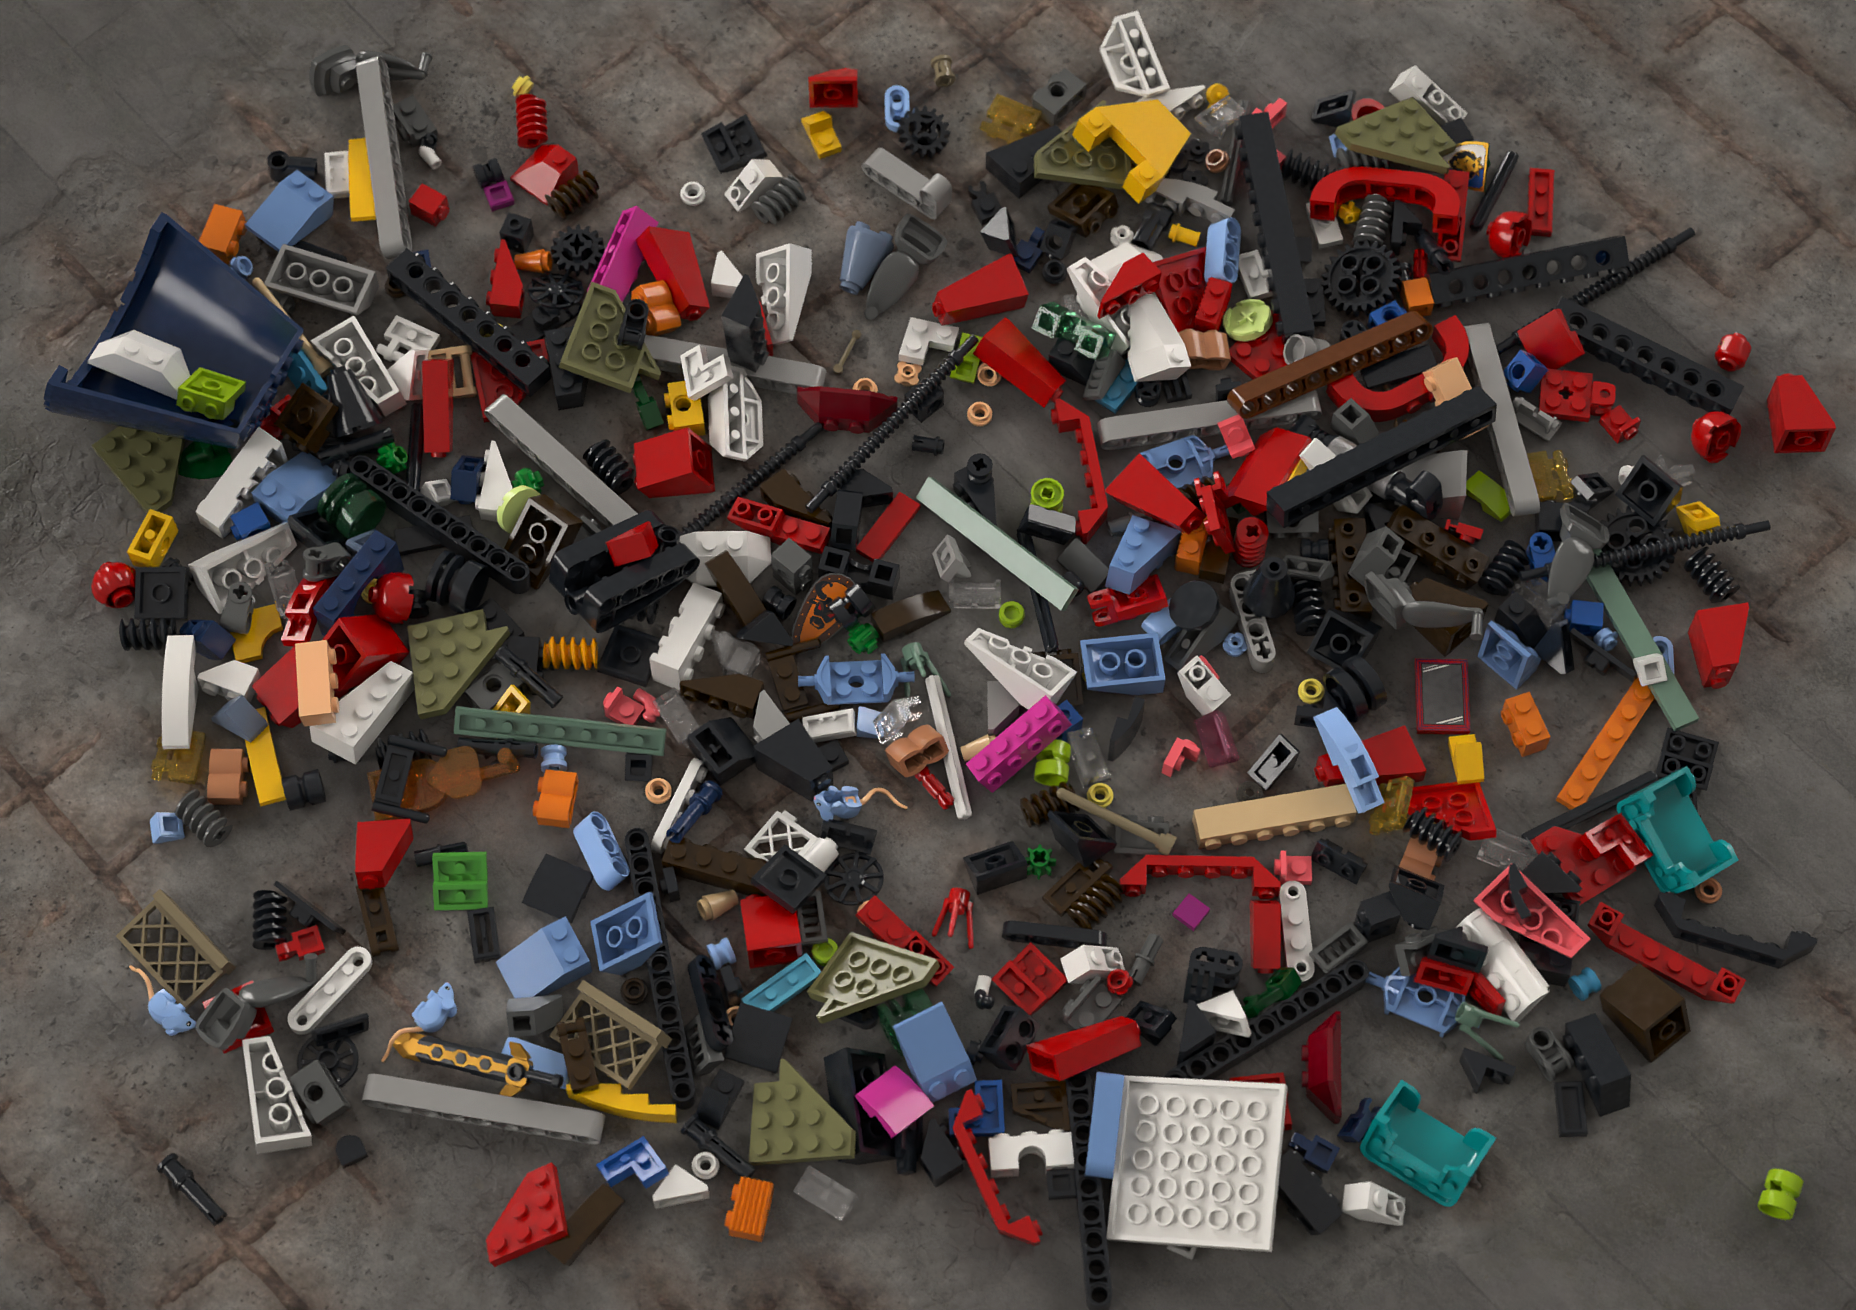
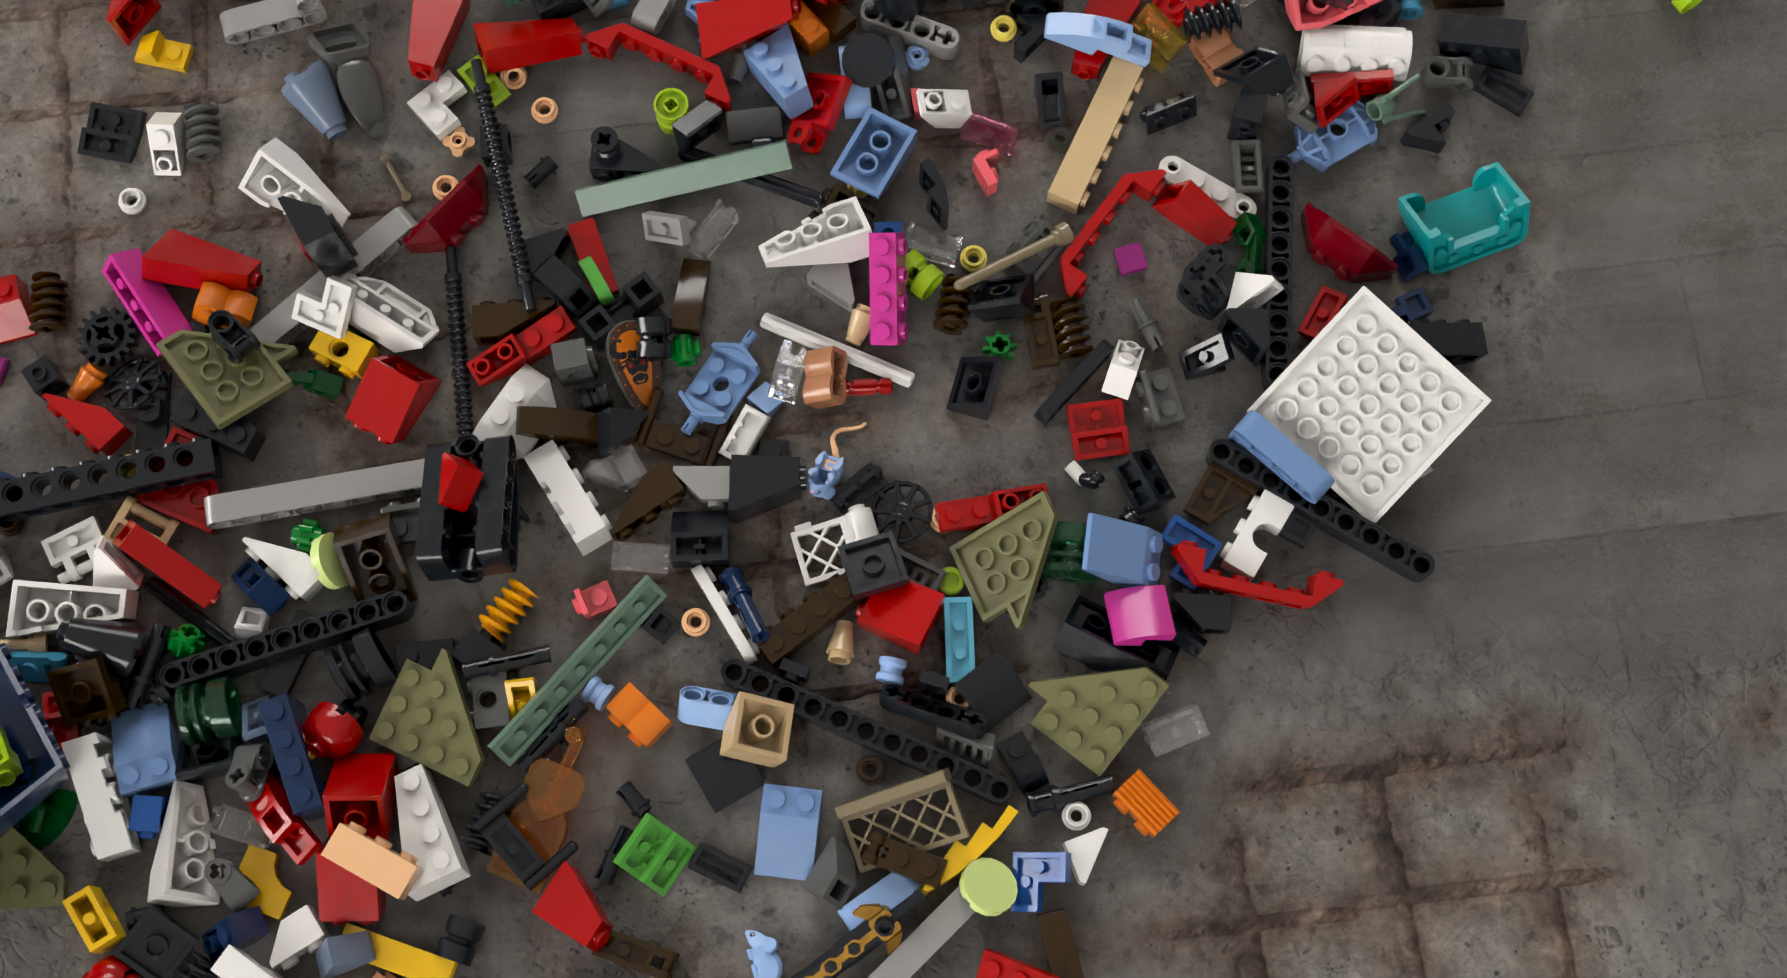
camera: 55 degrees left, 10 degrees up
(492, 839) = (634, 800): none -> black pin
(601, 1131) = (988, 886): none -> yellowish green tile
(602, 883) = (757, 730): none -> tan slope
(609, 466) = (348, 454): black piece -> none
(627, 935) = (824, 739): medium blue slope -> none
(629, 655) = (547, 559): black tile -> none
(647, 700) = (605, 572): coral arm -> none
(725, 277) = (245, 228): white slope -> none
(868, 539) = (596, 281): none -> bright green beam
(916, 659) = (735, 320): sand green plant -> none
(957, 903) = (988, 440): red plant -> none
(1011, 614) = (752, 214): lime tile -> none
(1083, 1048) = (1197, 429): red slope -> none
(1116, 976) = (1149, 353): red plate -> none
(1293, 868) = (1150, 152): coral bracket -> none
(1373, 1203) = (1485, 295): white slope -> none
(1453, 950) = (1332, 73): black slope -> none

